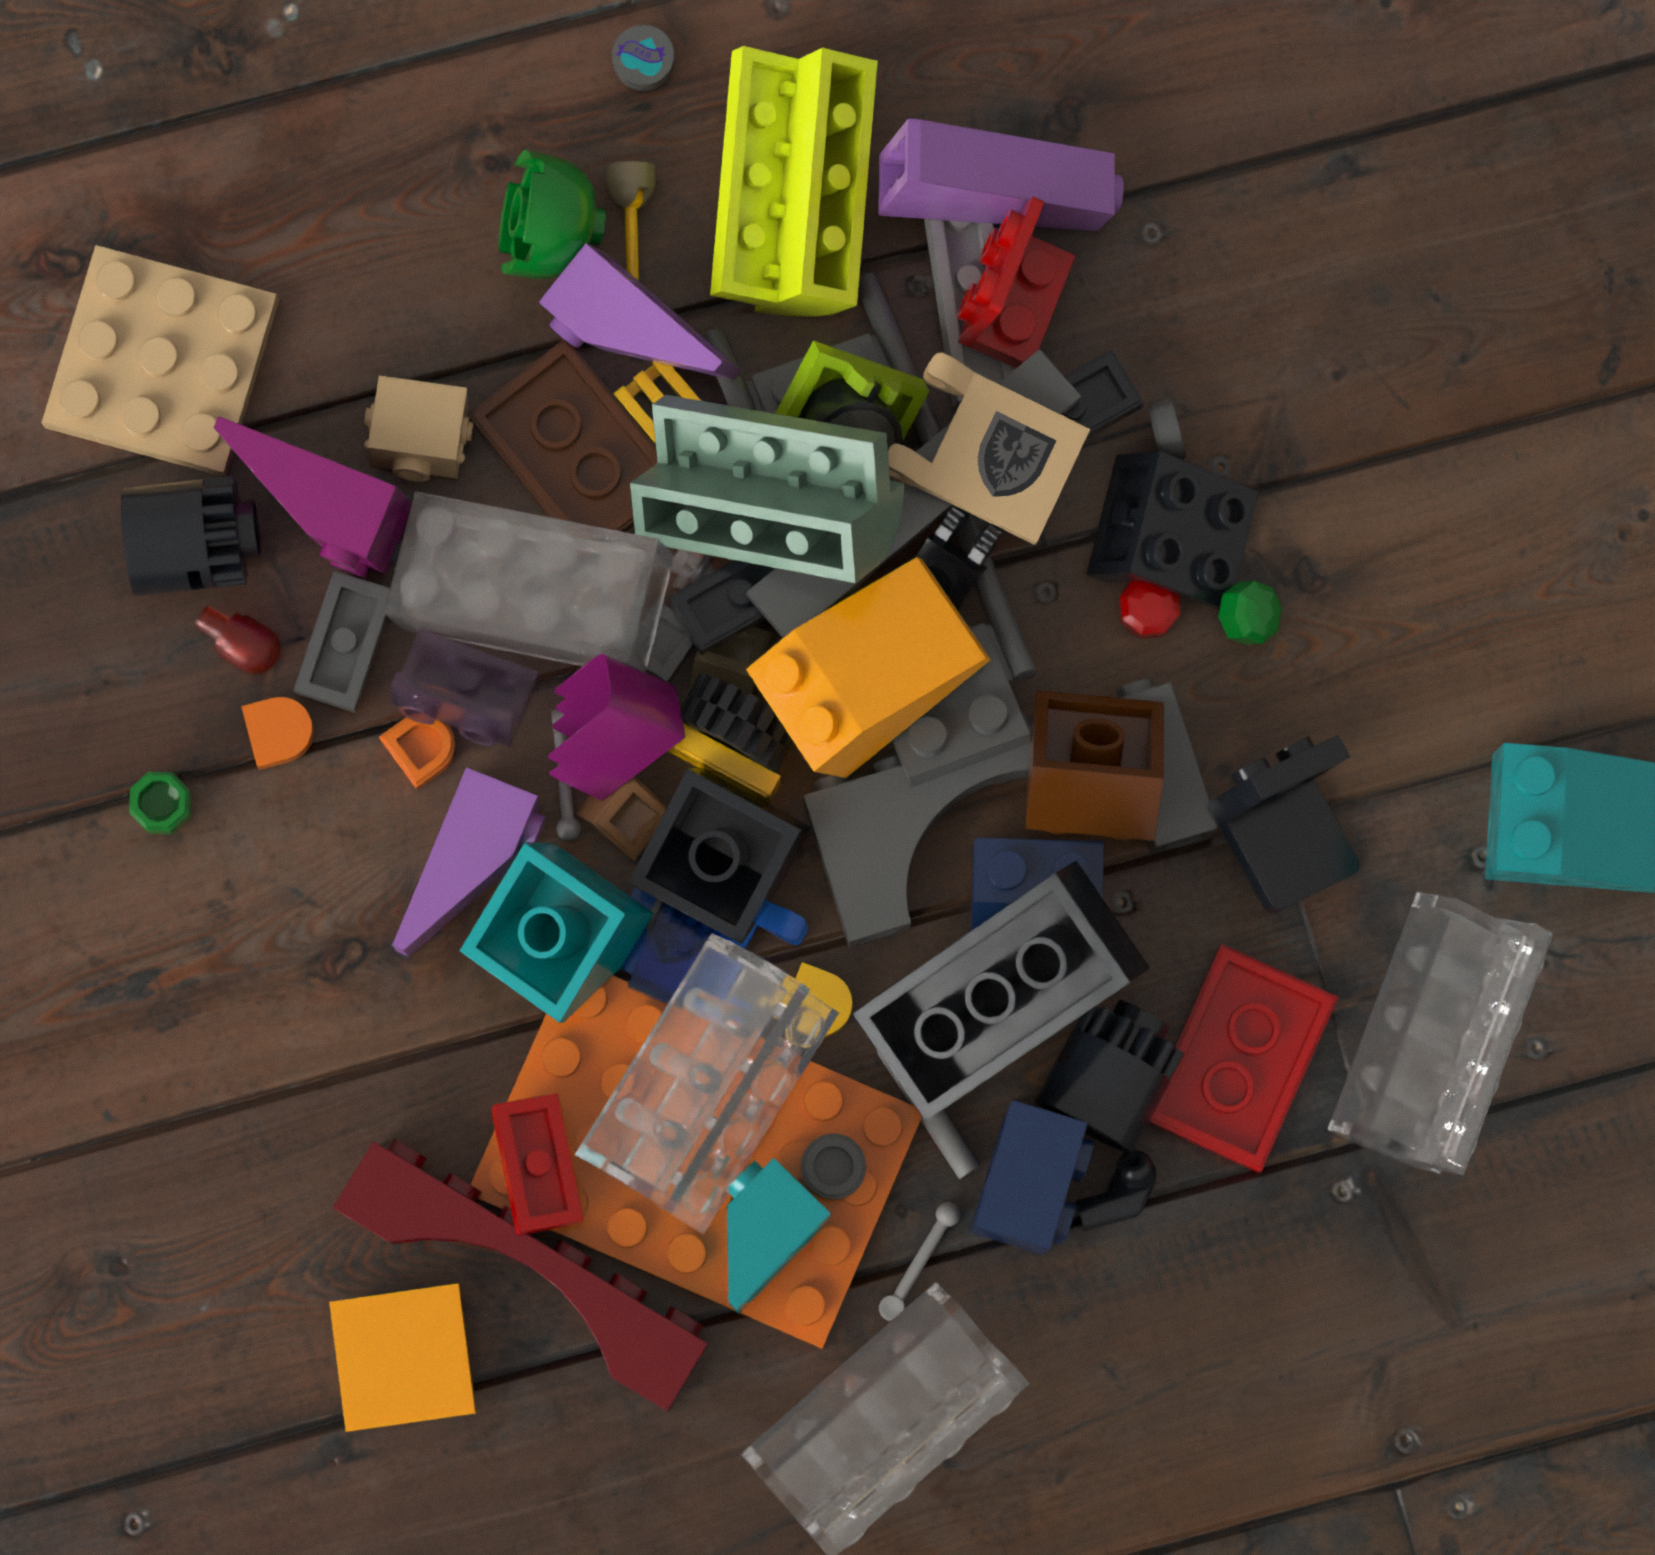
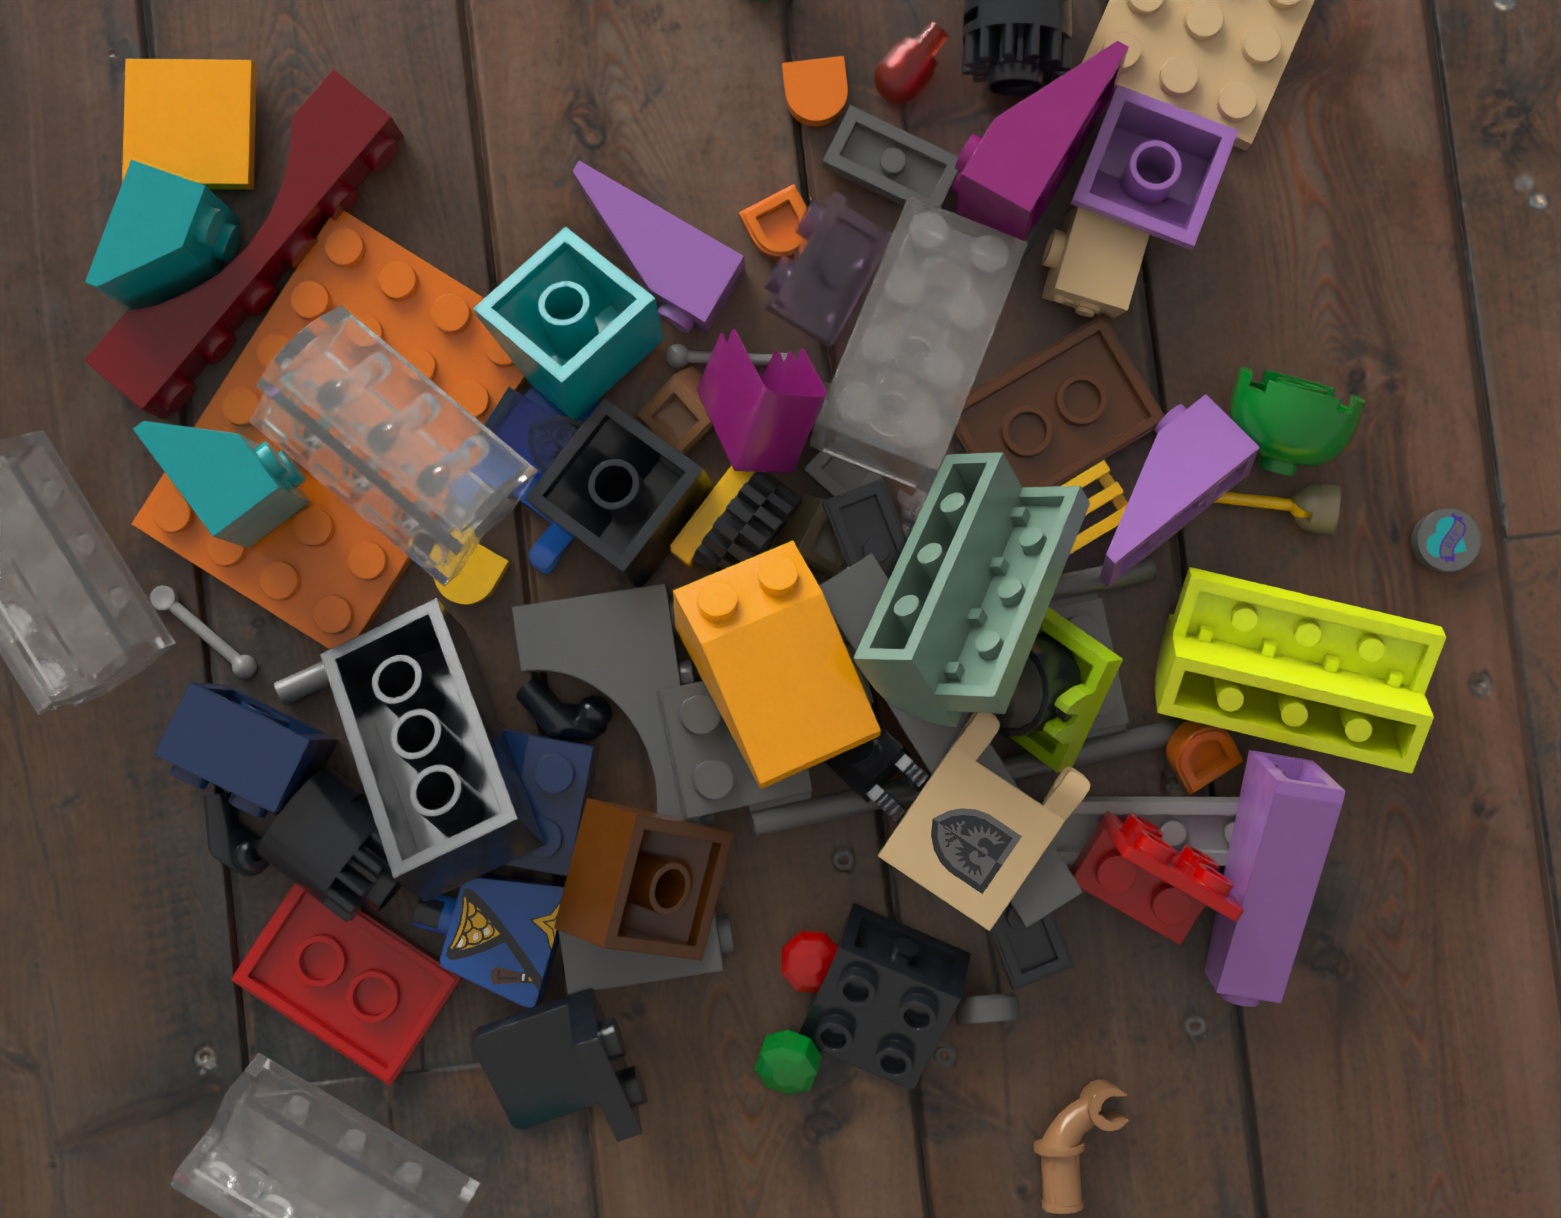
camera: 105 degrees right, 5 degrees up
(325, 382) = (1154, 167): none -> medium lavender slope
(527, 1345) = (162, 239): none -> teal slope
(537, 1164) = (340, 268): red plate -> none
(833, 1166) = (296, 558): dark grey tile -> none
(889, 262) = (1200, 754): none -> orange tile
(951, 881) = (561, 719): none -> black arm
(1170, 908) = (498, 933): none -> blue torso
(1283, 340) = (1064, 1143): none -> medium nougat piece

